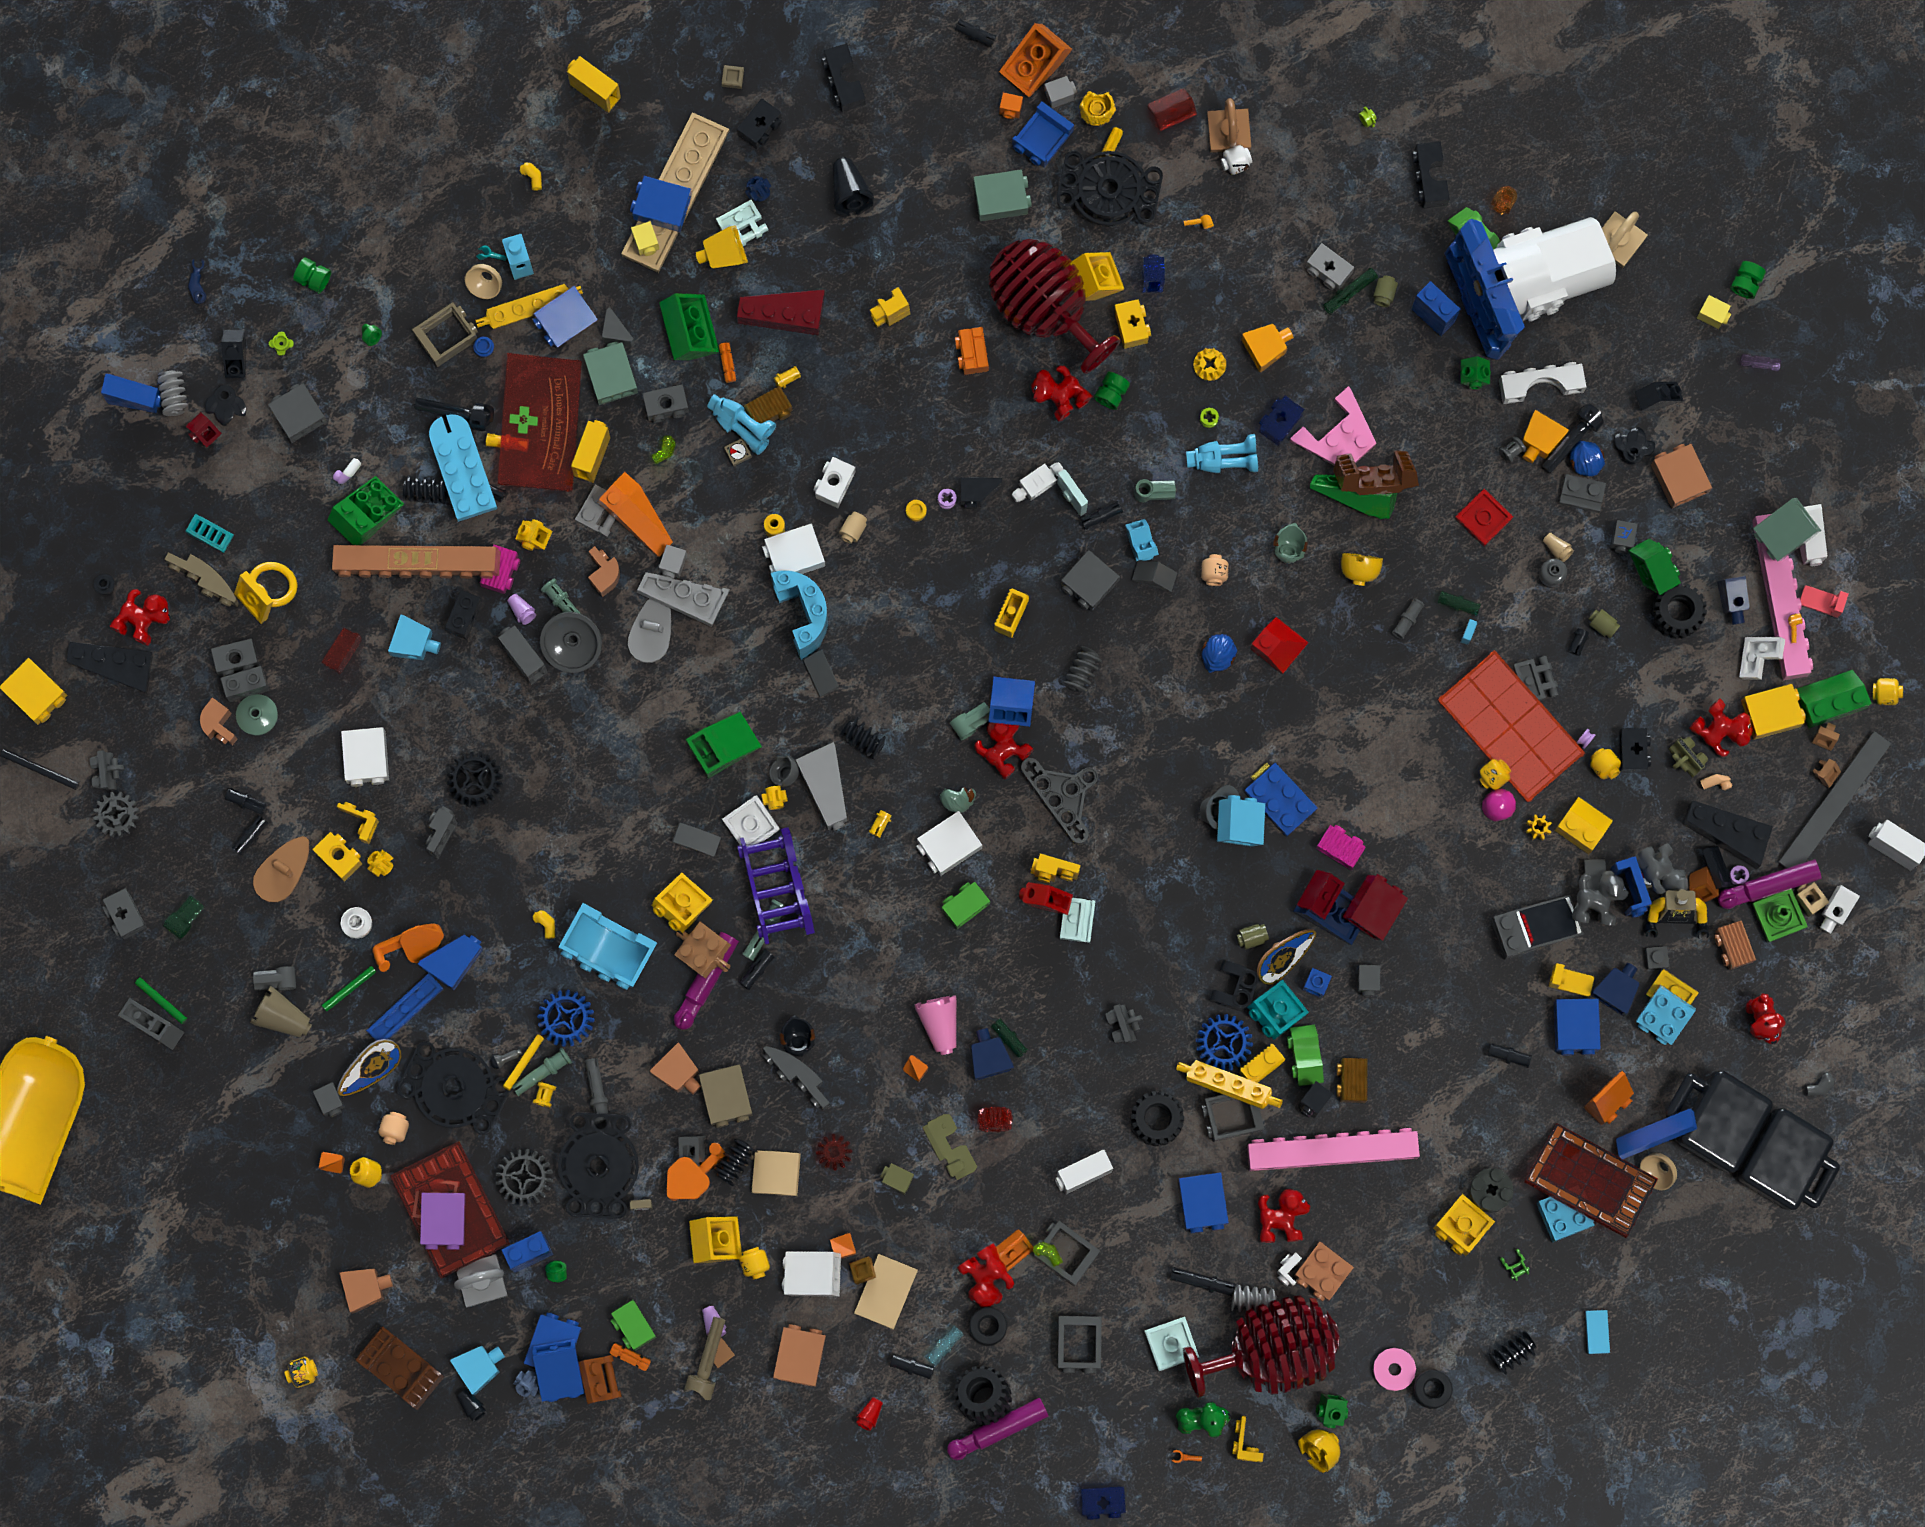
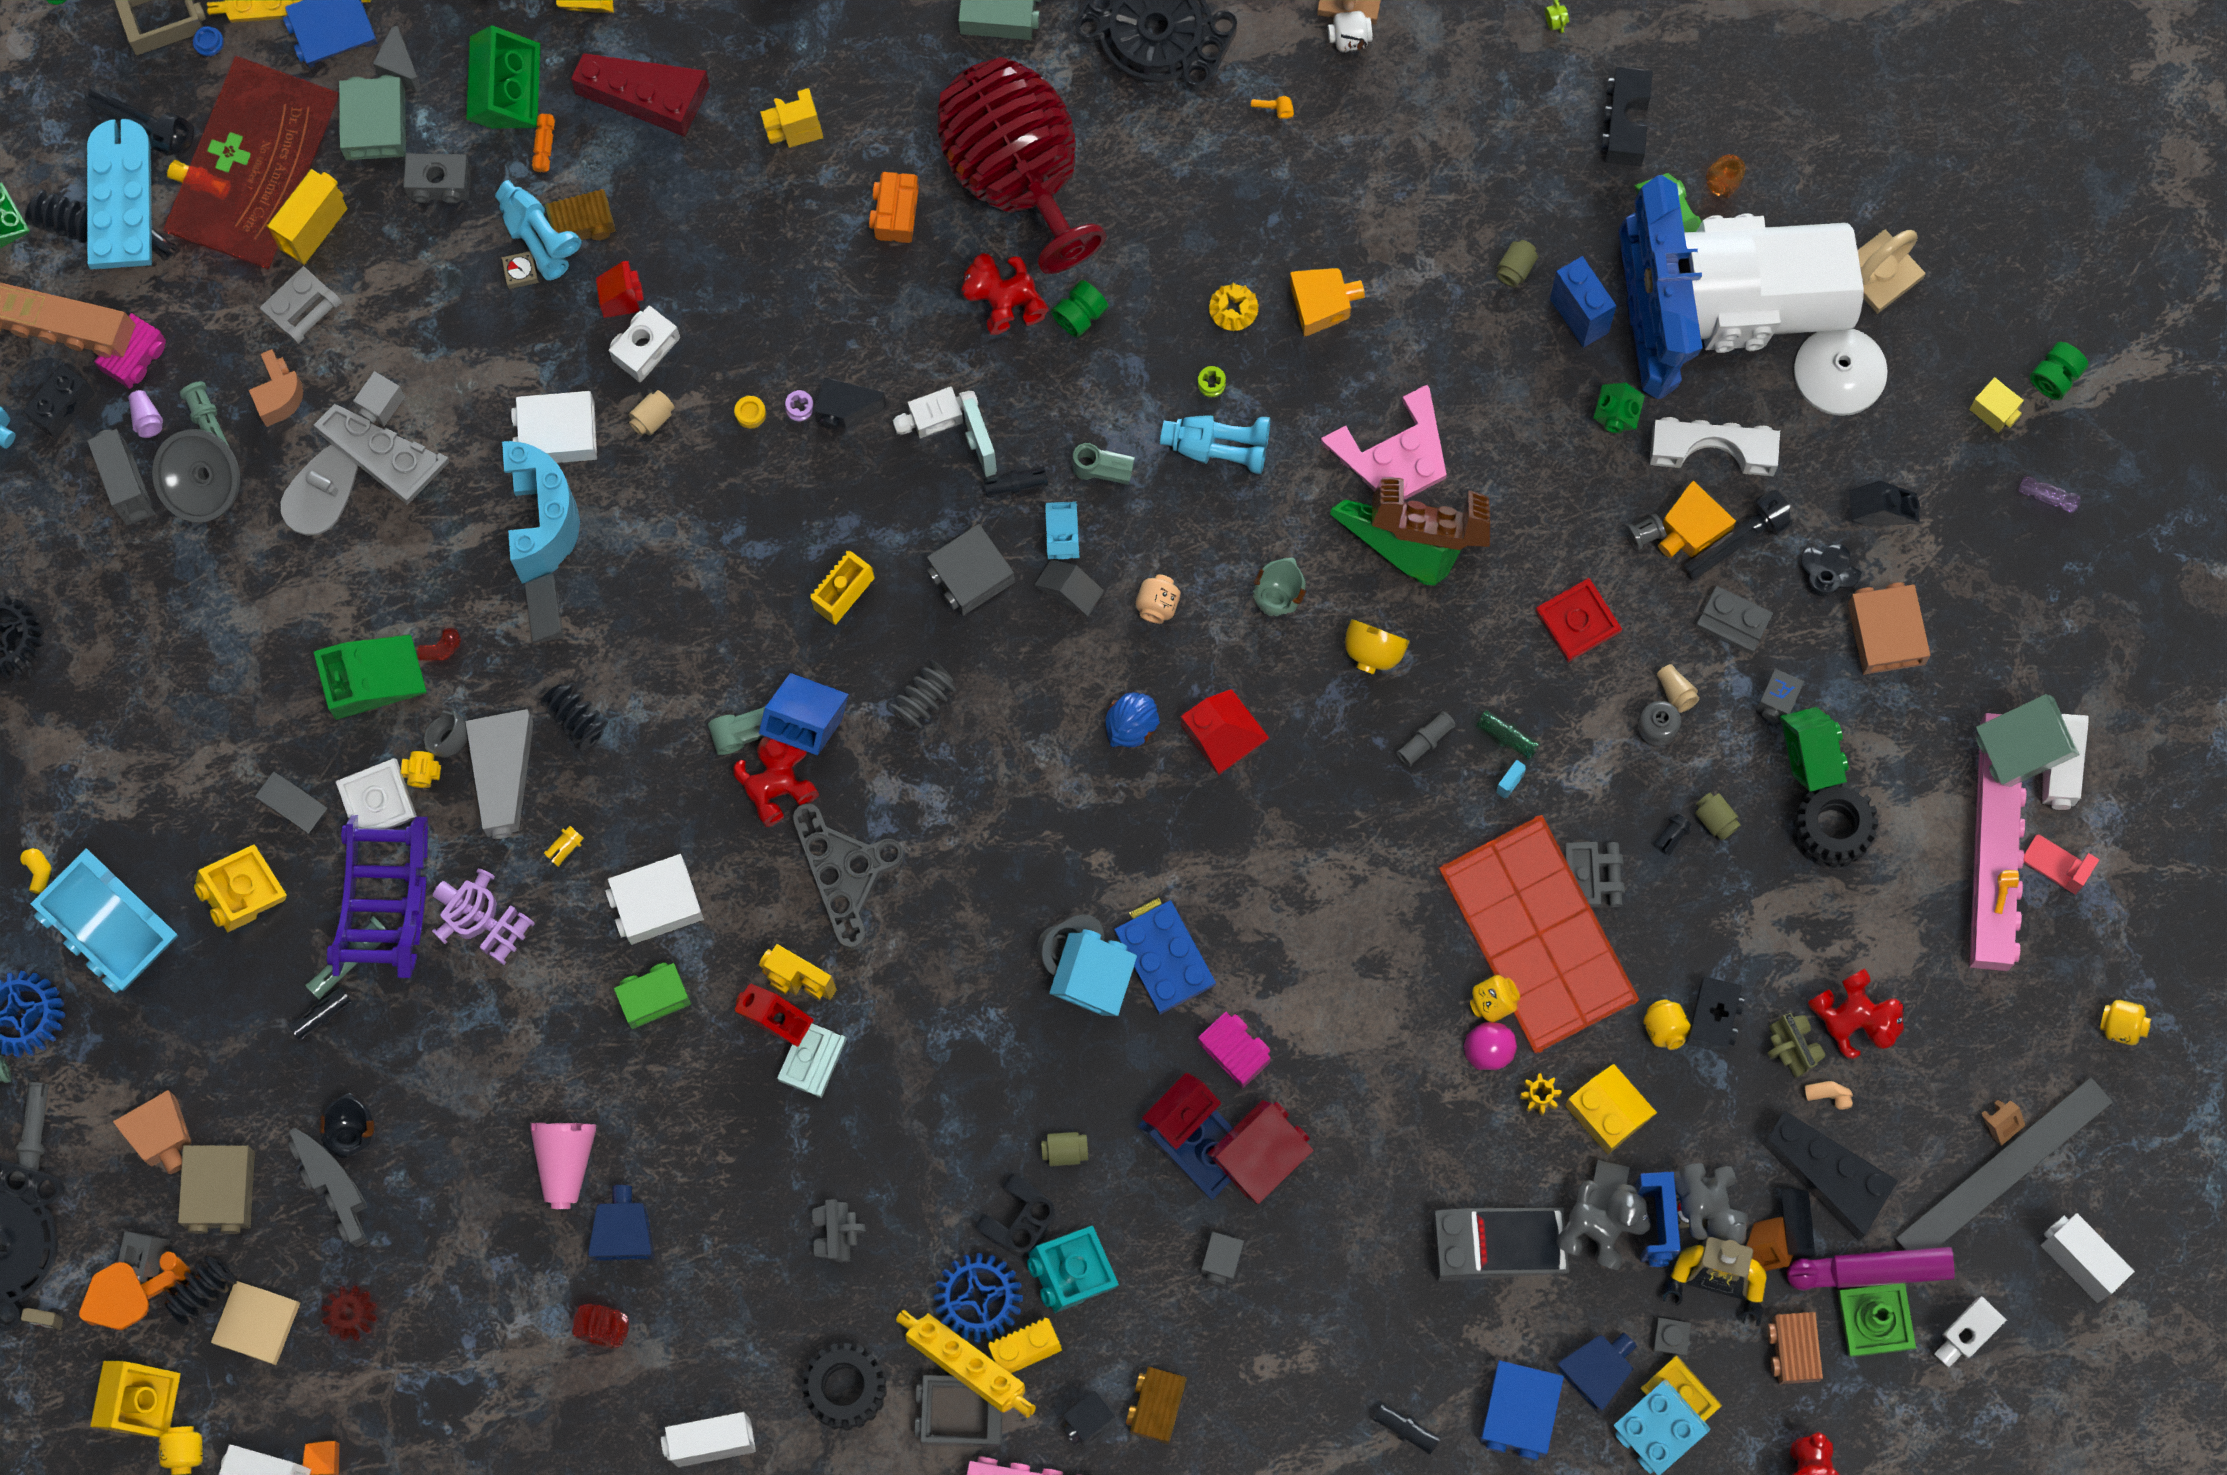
camera: 20 degrees right, 5 degrees down
(533, 535) = (191, 313): yellow brick -> none
(632, 509) = (344, 311): orange wedge -> none
(666, 451) = (419, 244): clear neon green arm -> none
(701, 989) = (239, 1010): magenta piece -> none
(703, 950) = (246, 964): medium nougat plate -> none
(764, 714) = (443, 649): none -> clear red arm
(774, 519) = (537, 380): yellow brick -> none
(787, 377) = (620, 182): yellow pin -> none
(809, 451) = (619, 290): none -> red slope
(820, 876) = (460, 903): none -> lavender piece
(897, 1178) = (430, 1377): olive brick -> none
(915, 1068) = (508, 1219): orange slope -> none
(958, 801) = (685, 839): sand green hair -> none
(959, 1158) = (534, 1372): olive piece -> none
(1009, 1038) = (660, 1209): clear green pin -> none
(1098, 275) = (1104, 144): yellow slope -> none
(1131, 335) = (1132, 206): yellow brick -> none
(1153, 274) = (1184, 159): clear blue brick -> none
(1278, 431) = (1307, 423): clear blue brick -> none
(1284, 956) = (1103, 1191): shield -> none
(1306, 1055) = (1096, 1348): bright green brick -> none
(1317, 983) = (1142, 1243): blue brick -> none
(1322, 259) = (1442, 196): light grey brick -> none
(1343, 296) = (1434, 265): clear green pin -> none
(1571, 981) = (1530, 1339): yellow bracket -> none
(1585, 739) = (1646, 980): lavender bush -> none
(1587, 458) = (1753, 571): blue hair -> none
(1606, 324) = (1835, 387): none -> white dish
(1734, 589) = (1928, 812): dark blue torso -> none
(1741, 881) = (1827, 1233): lavender bush -> none
(1754, 653) = (1937, 914): white plate -> none
(1774, 711) = (1943, 1009): yellow brick -> none
(1819, 900) = (1943, 1310): tan brick -> none
(1826, 737) = (2014, 1067): medium nougat tile -> none
(1833, 698) = (2038, 1013): green slope -> none

